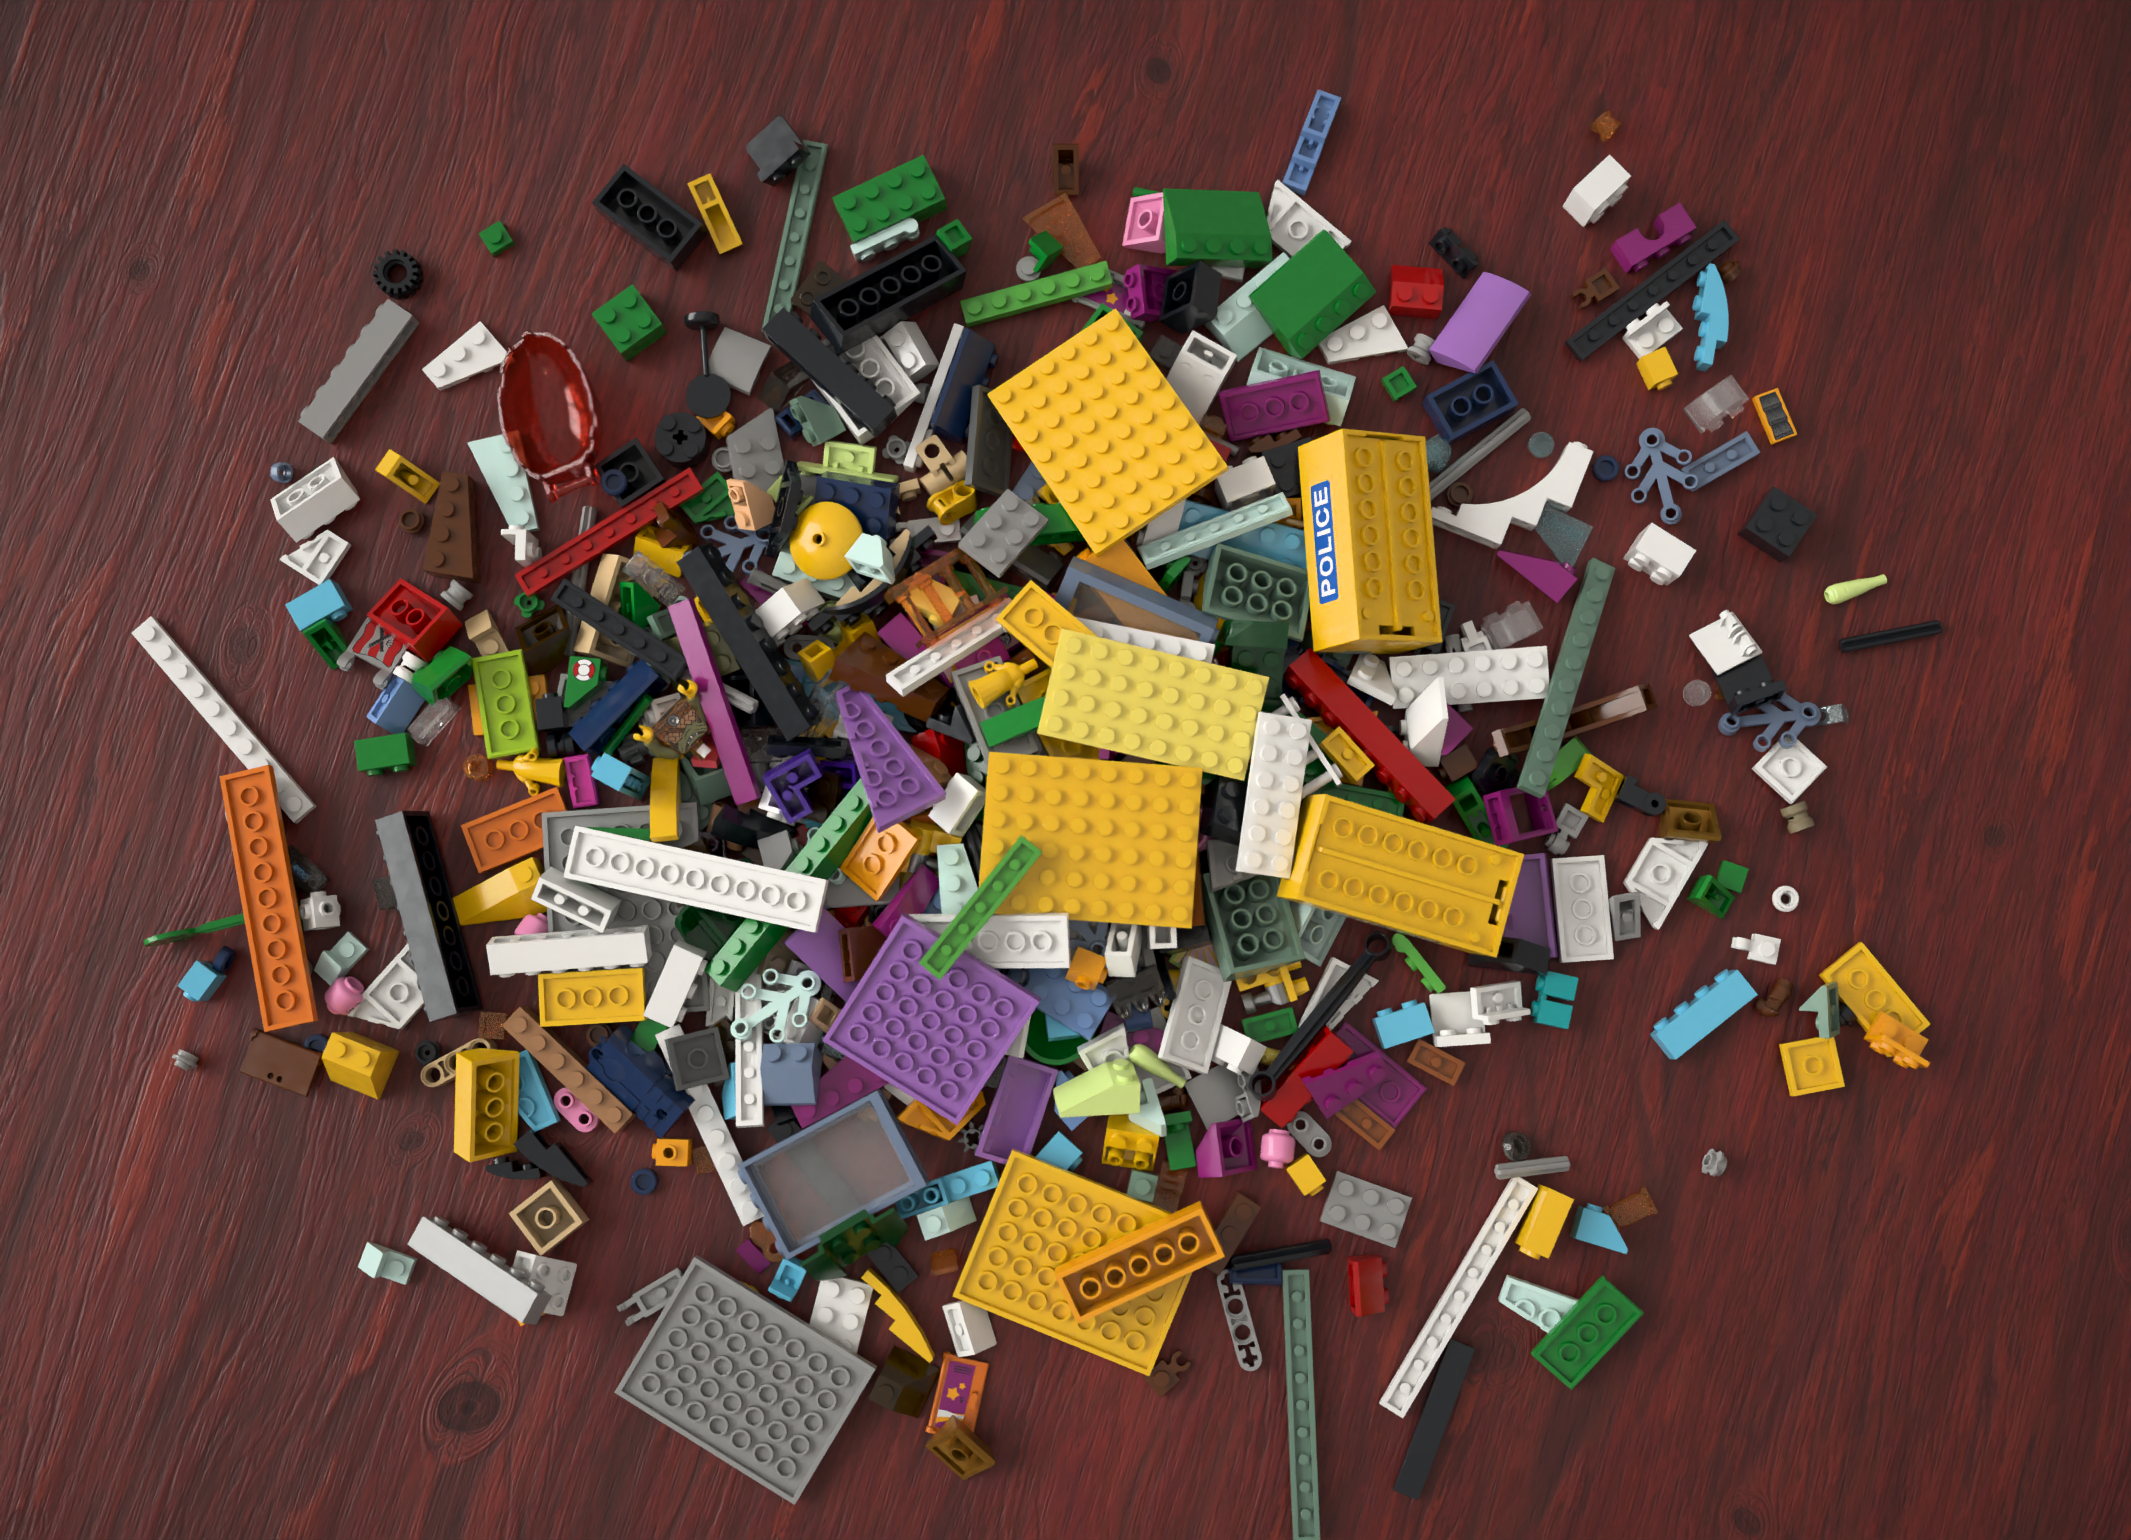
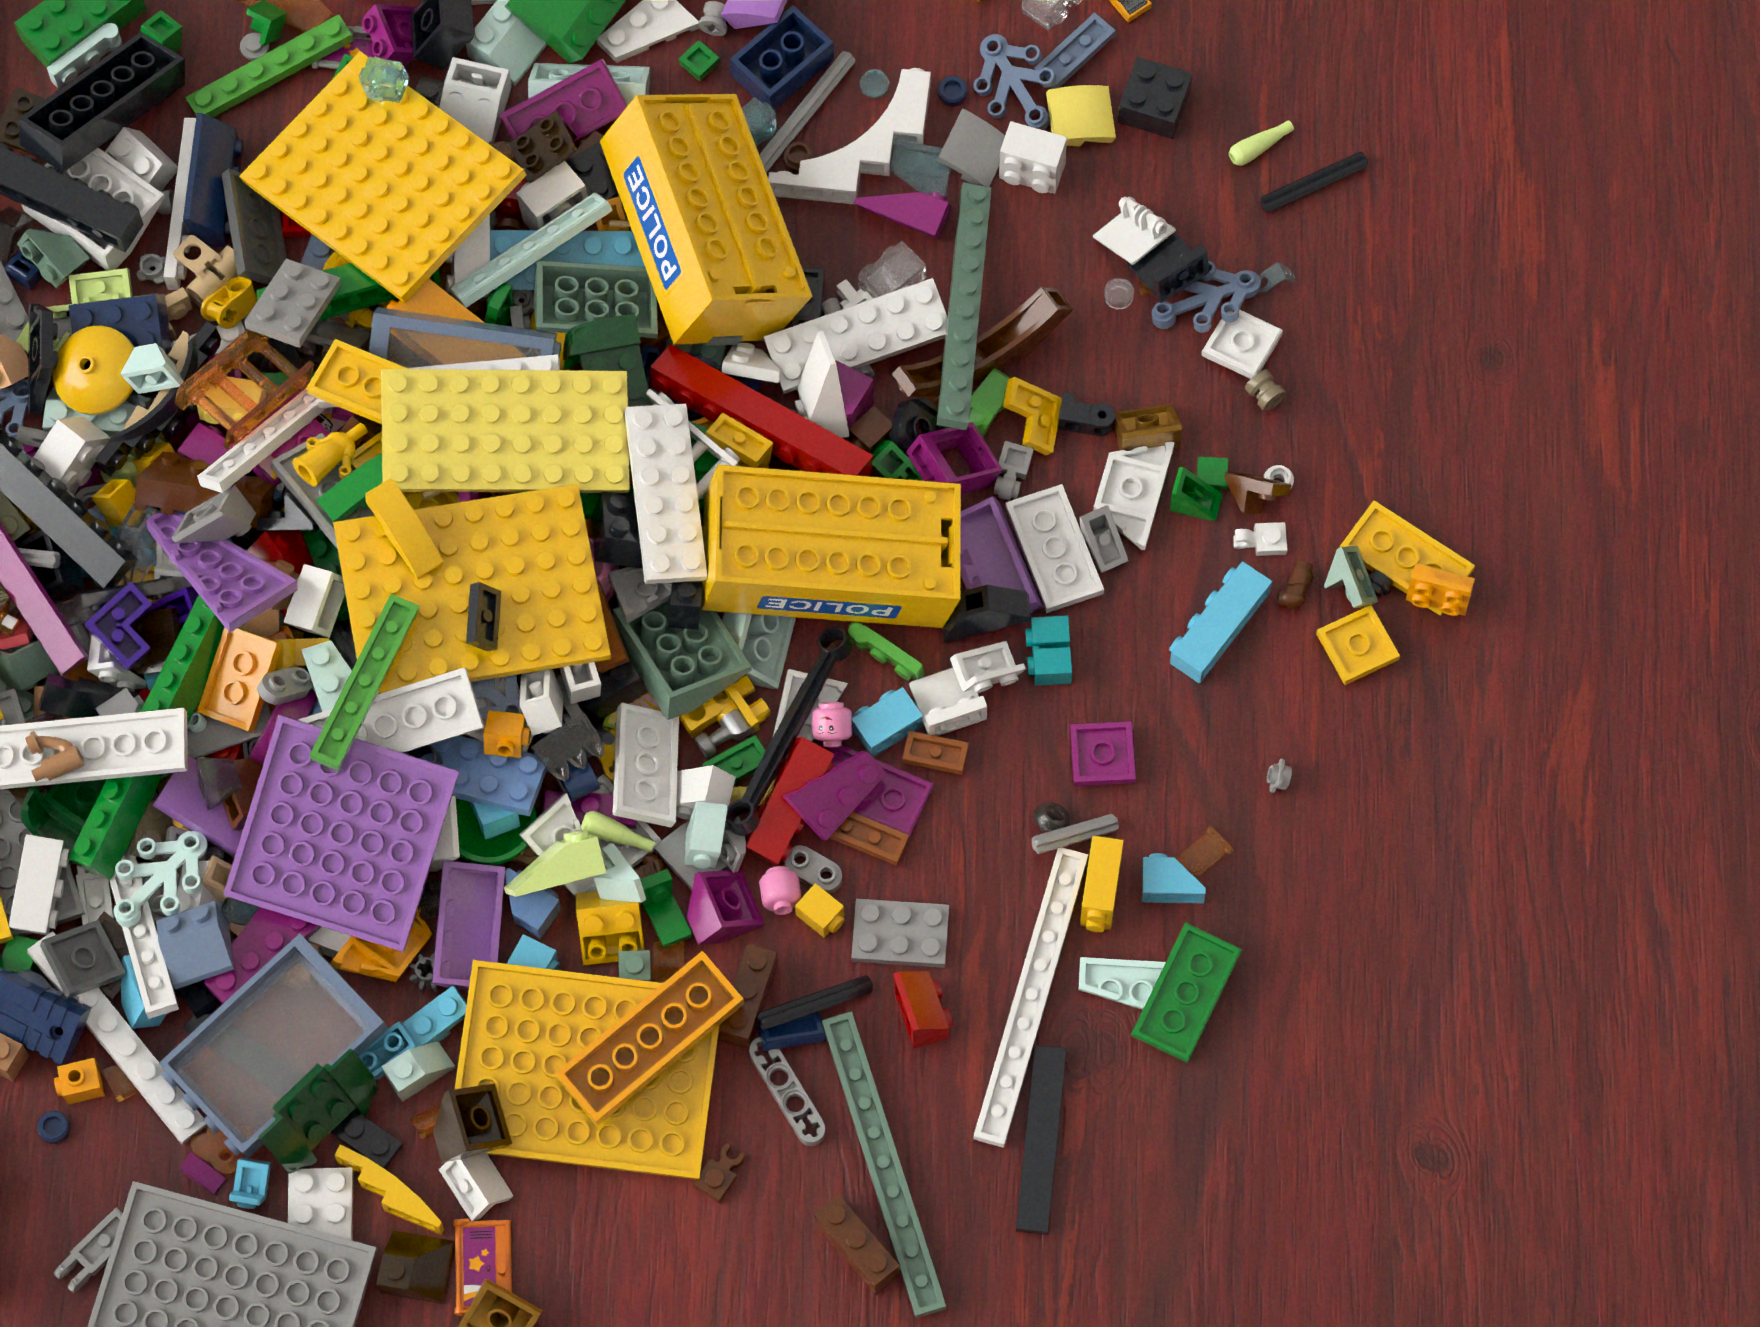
camera: 20 degrees left, 15 degrees down
(709, 900) = (58, 764): none -> medium nougat plant
(841, 945) = (217, 780): none -> clear smoke slope
(891, 712) = (216, 518): none -> light grey slope
(917, 874) = (284, 685): none -> light grey plate
(976, 1290) = (470, 1123): none -> dark brown slope
(1046, 778) = (403, 528): none -> yellow slope
(1093, 874) = (483, 616): none -> plate
(1128, 347) = (383, 80): none -> clear light blue brick
(1228, 1092) = (705, 834): none -> light aqua slope
(1249, 438) = (544, 146): none -> dark brown bracket
(1261, 1469) = (856, 1244): none -> reddish brown brick
(1264, 891) = (685, 605): none -> black brick
(1357, 1018) = (831, 723): none -> bright pink head
(1573, 1101) = (1102, 753): none -> magenta plate
(1610, 530) = (973, 149): none -> light grey slope
(1709, 521) = (1081, 114): none -> light yellow slope
(1762, 904) = (1252, 490): none -> reddish brown slope

